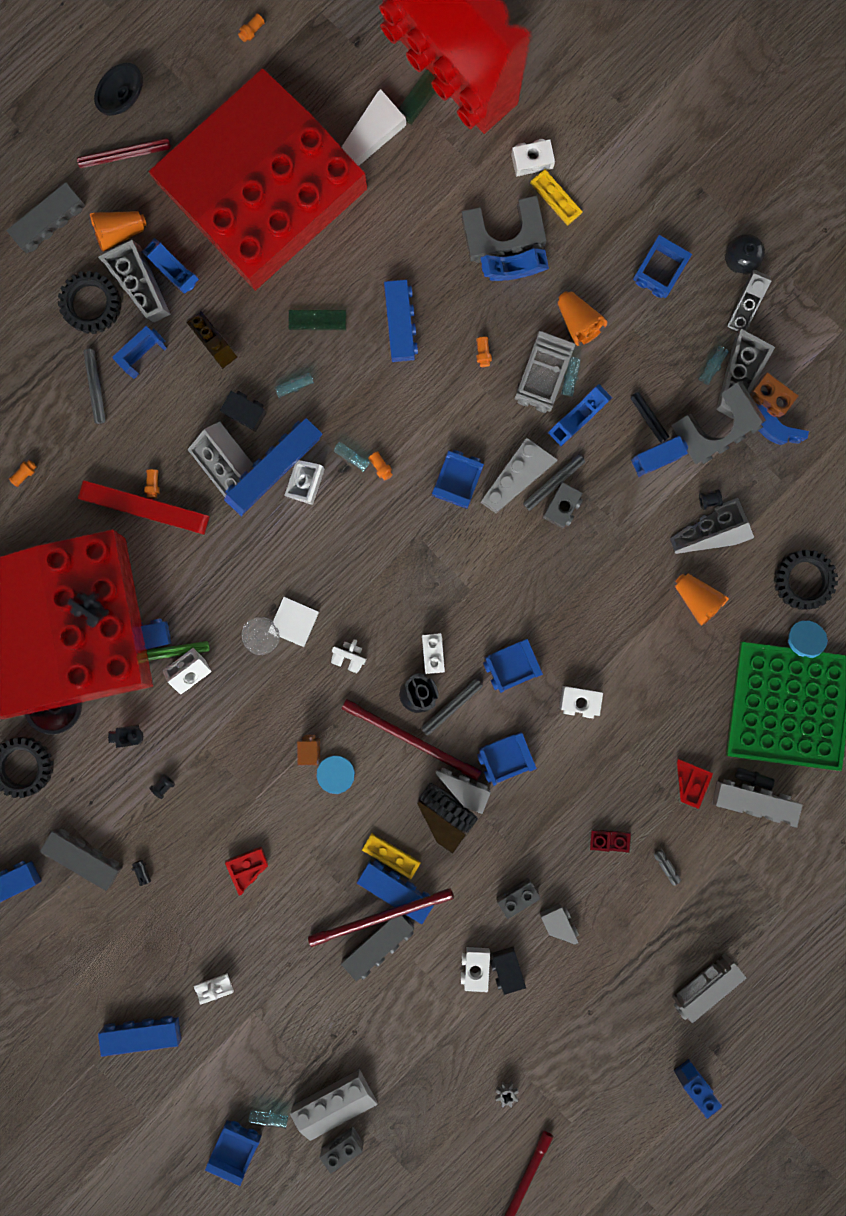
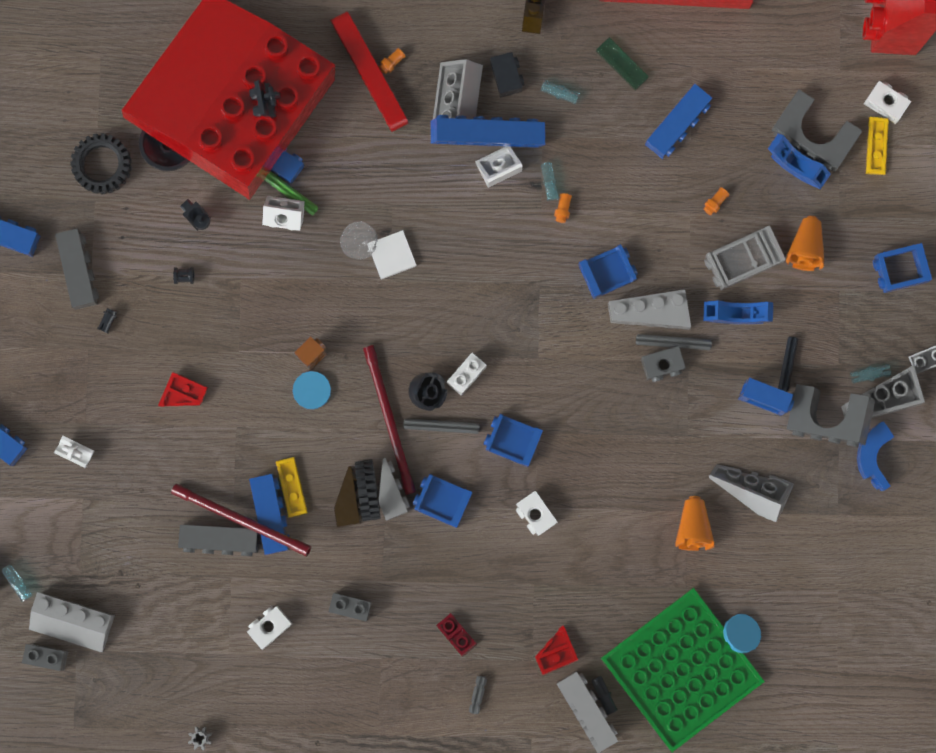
camera: 45 degrees right, 5 degrees down
(339, 655) = (400, 309): white hips -> none
(508, 971) = (290, 651): black brick -> none
(557, 924) = (359, 654): light grey slope -> none
(571, 377) = (760, 280): clear light blue axle -> none
(710, 499) = (772, 465): black bush -> none
(775, 390) = (894, 433): dark orange brick -> none
(825, 569) = (800, 574): black tyre -> none

